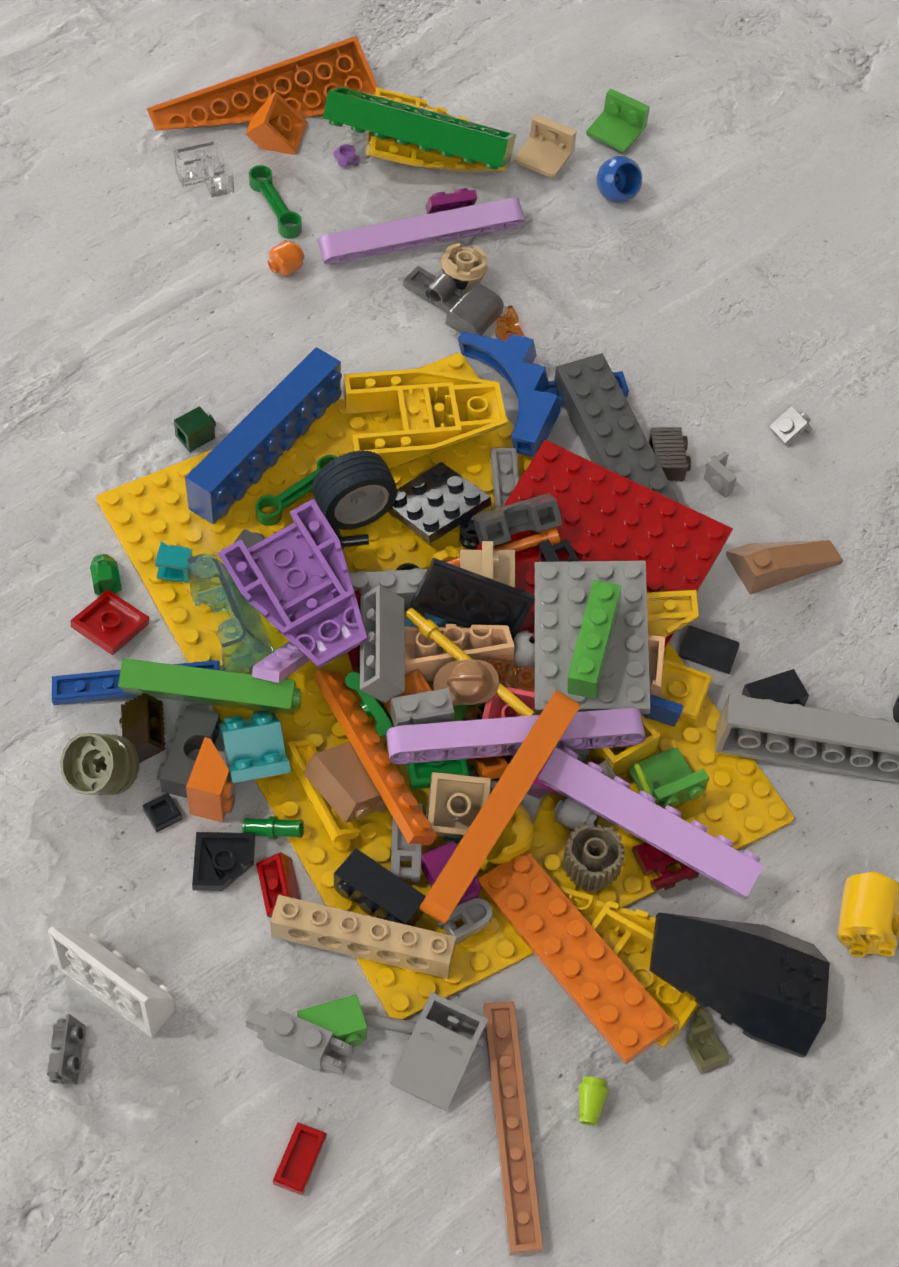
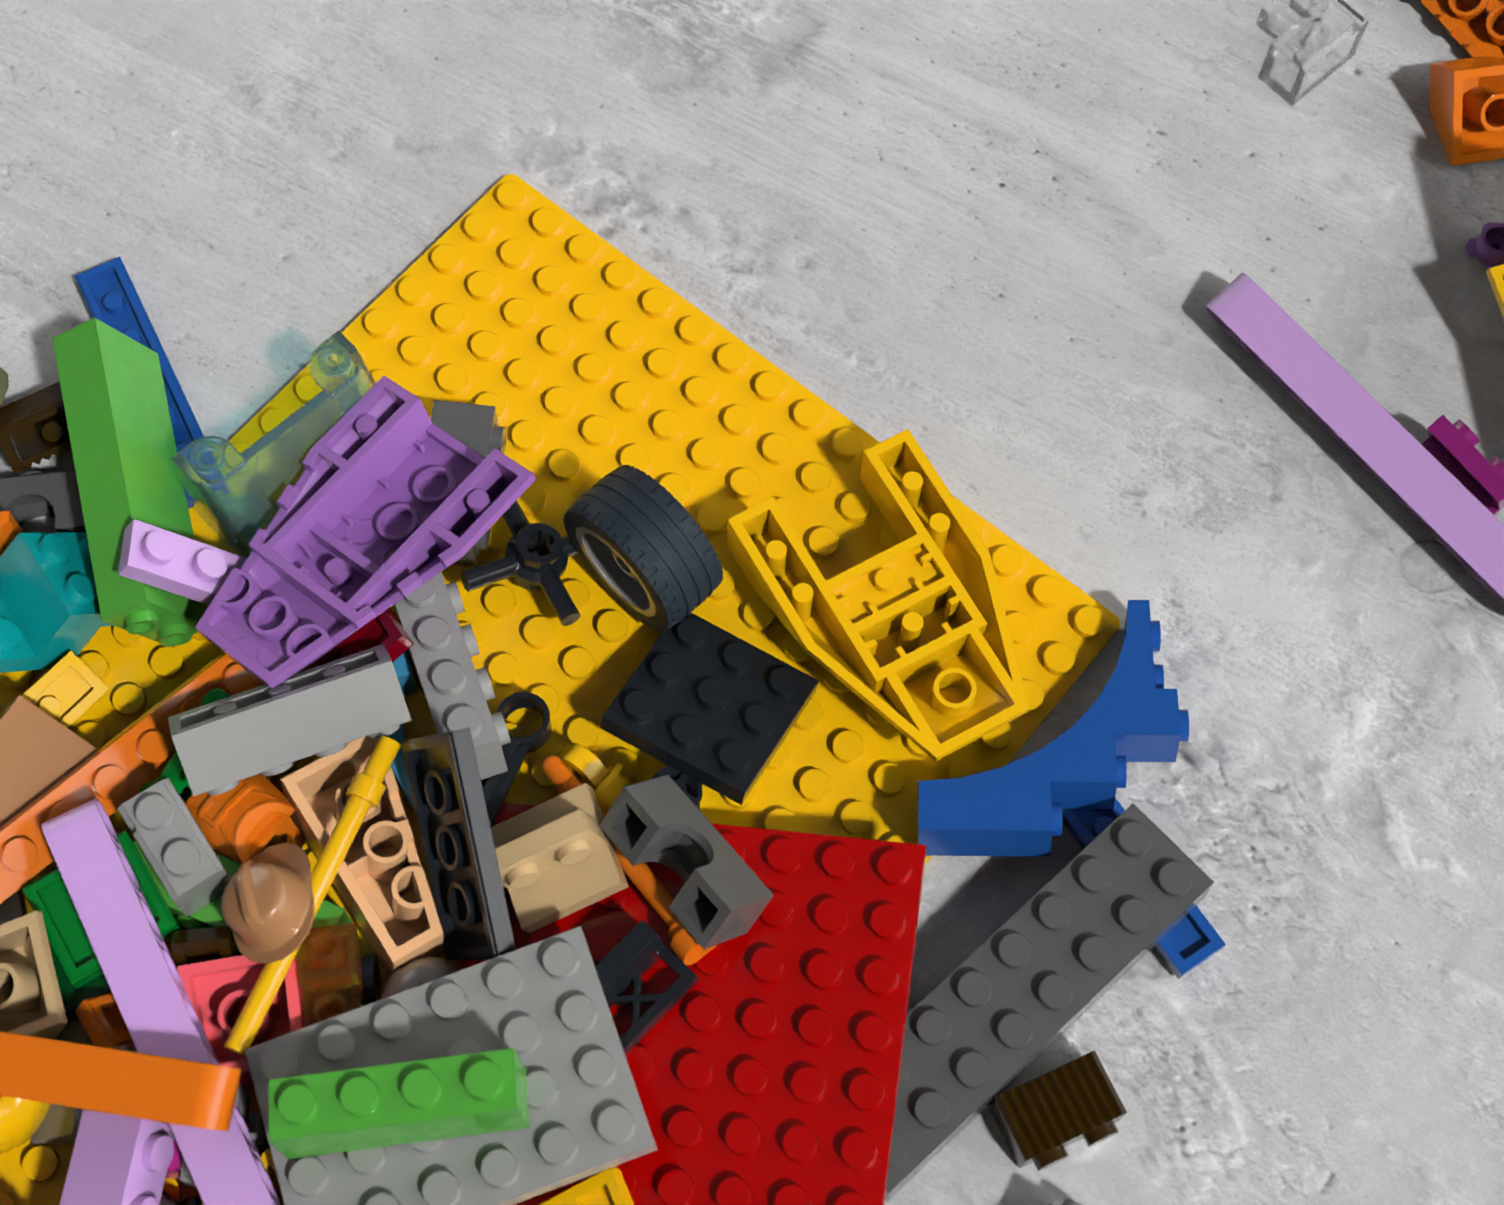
camera: 70 degrees right, 10 degrees up
(105, 574) = (351, 249): green rock -> none
(110, 622) = (257, 294): red plate -> none
(173, 563) = (396, 334): teal window -> none
(195, 428) = (710, 255): dark green brick -> none
(263, 436) = (716, 357): blue brick -> none
(275, 202) = (1307, 176): green piece -> none
(285, 258) = (1172, 242): orange head -> none
(288, 496) = (617, 452): green piece -> none
(464, 265) = (1321, 544): tan cone -> none
(465, 312) = (1229, 601): flat silver plate -> none
(504, 473) = (847, 806): light grey tile -> none
(508, 325) = (1224, 692): clear orange slope -> none

